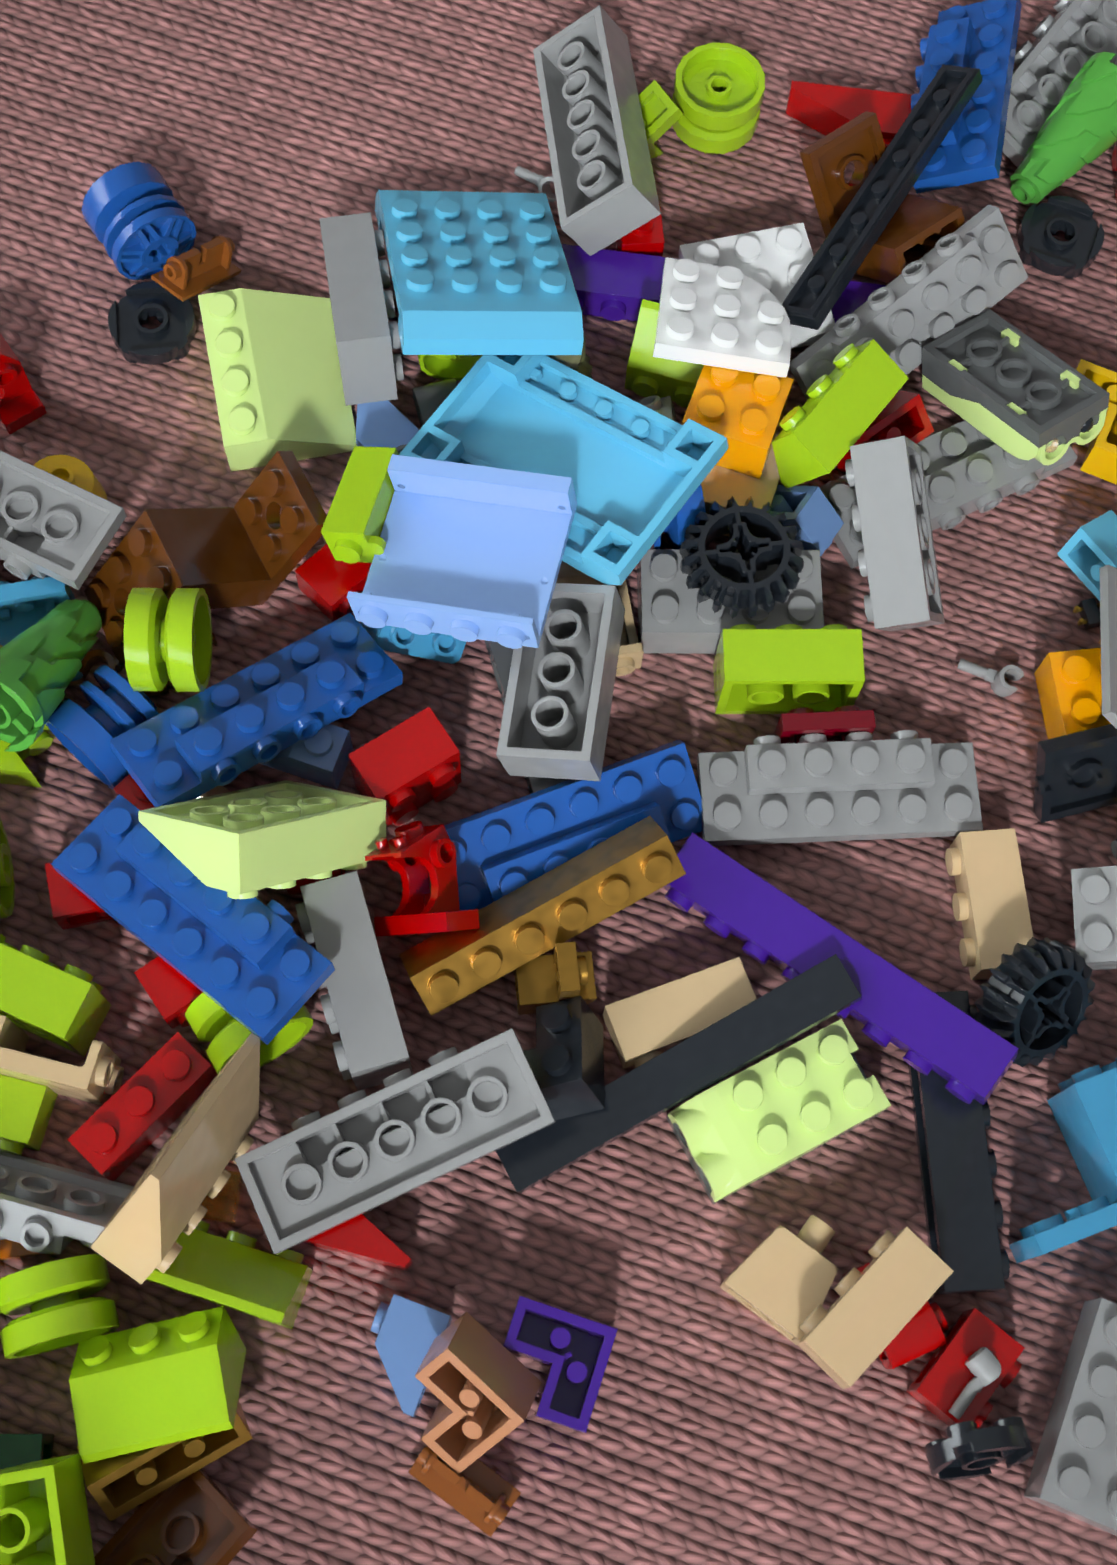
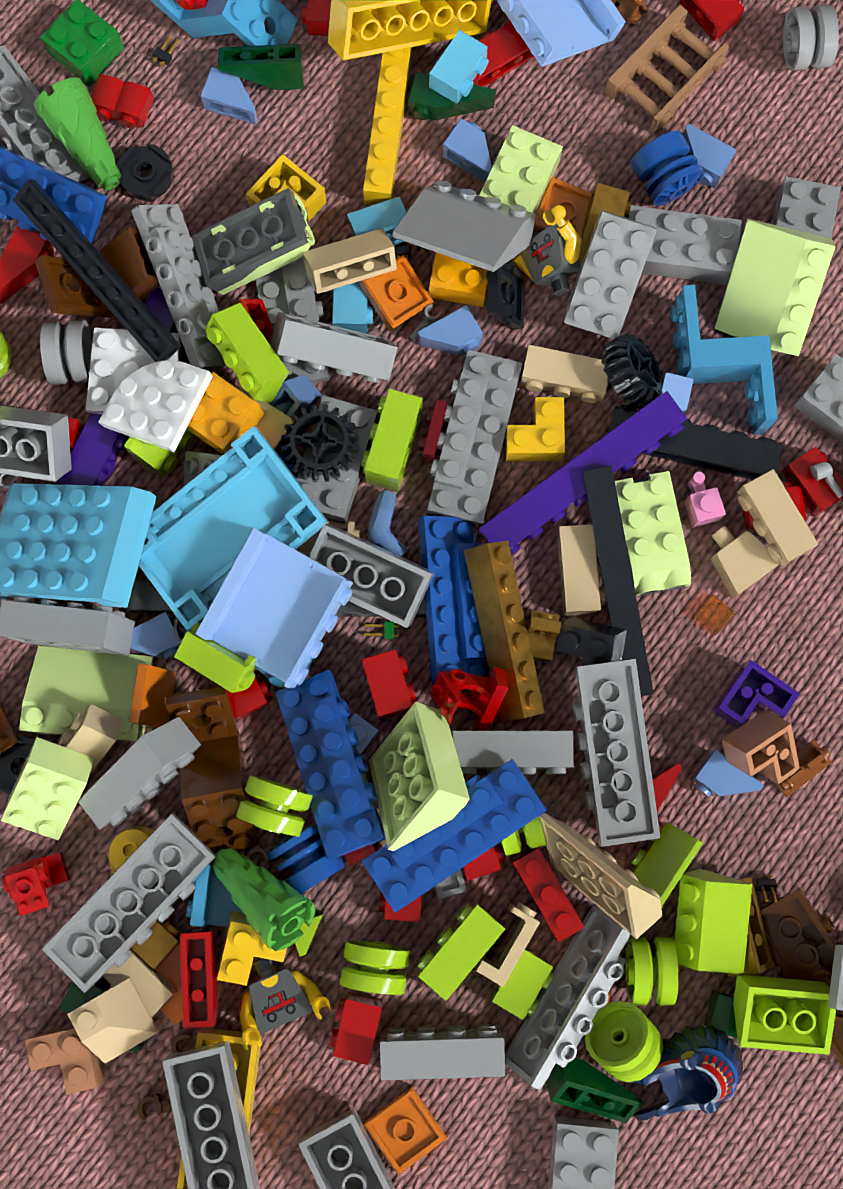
camera: 70 degrees left, 10 degrees up
(121, 345) = (47, 788): none -> yellowish green brick
(126, 955) = (452, 885): none -> light grey tile
(173, 452) = (140, 773): none -> light grey brick
(194, 375) = (92, 733): none -> tan brick
(249, 1477) = (767, 884): none -> black piece
(306, 434) = (150, 695): none -> orange tile
(489, 757) = (388, 631): none -> piece
(653, 695) = (380, 521): none -> medium blue arm
(680, 1259) = (714, 614): none -> clear orange tile
(755, 195) = (66, 351): none -> light grey wheel
(859, 1184) = (703, 505): none -> bright pink brick
(871, 896) = (541, 440): none -> yellow brick
(983, 558) = (351, 308): none -> medium azure brick
(990, 715) = (453, 333): none -> medium blue slope
(1020, 614) = (397, 294): none -> orange tile
(1027, 1088) = (679, 388): none -> light blue brick
(1038, 524) = (349, 260): none -> tan brick

